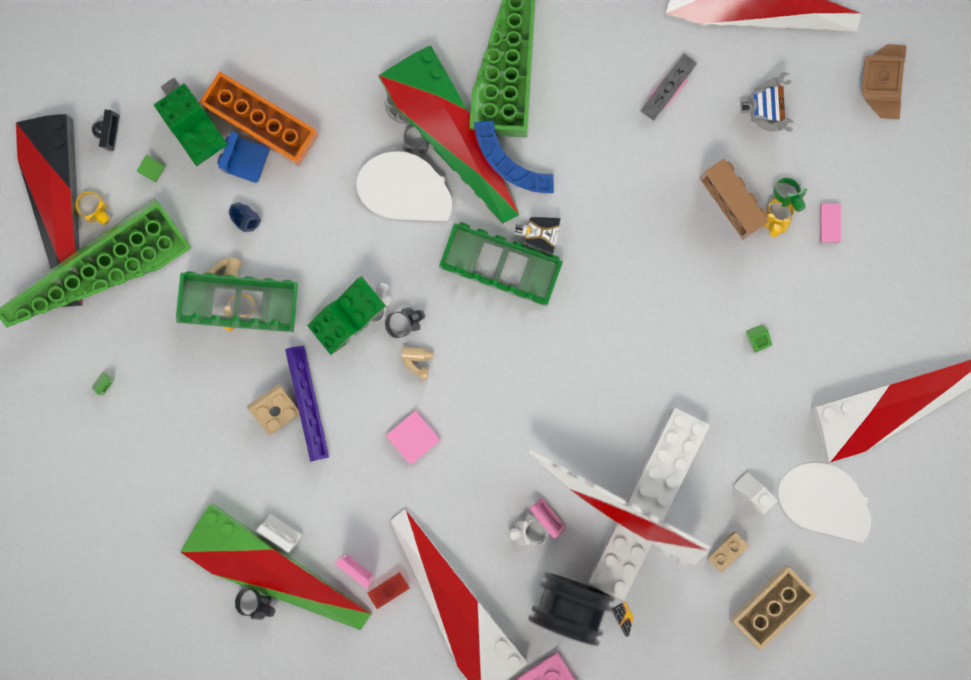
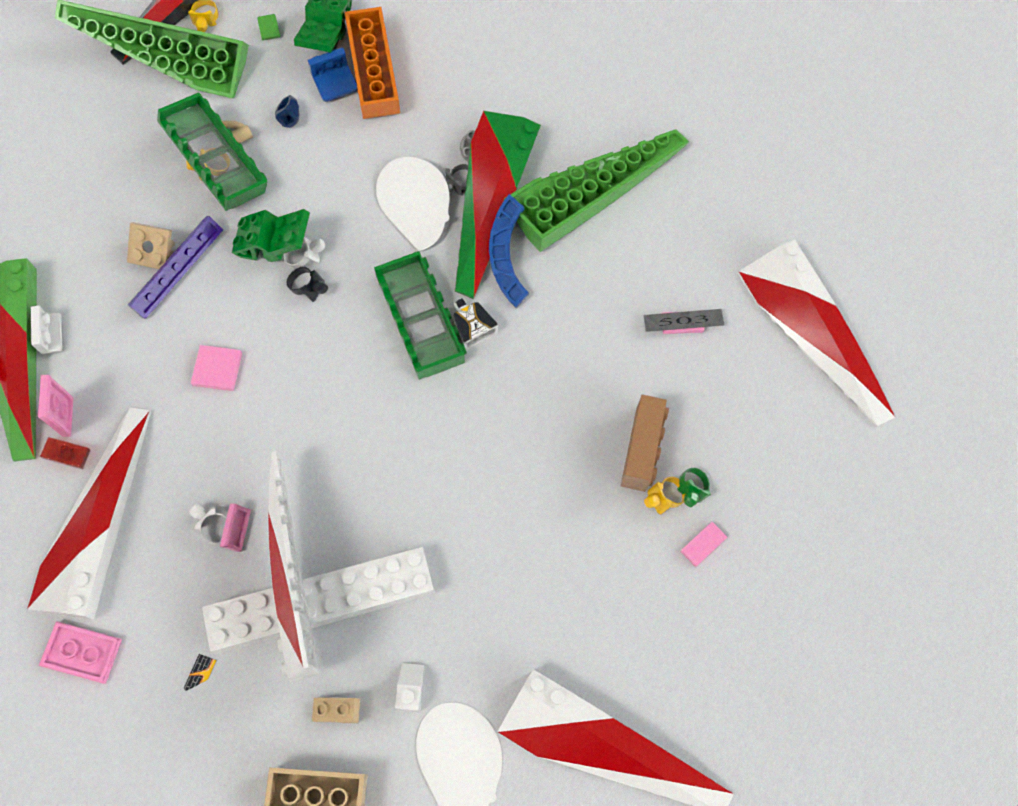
camera: 45 degrees right, 15 degrees down
(102, 384) = (70, 121): bright green slope -> none
(416, 354) = (286, 311): tan plant -> none
(571, 609) = (160, 608): black wheel -> none
(759, 338) = (550, 571): bright green slope -> none
(768, 105) = (748, 405): torso -> none
(884, 80) = (860, 481): medium nougat piece -> none

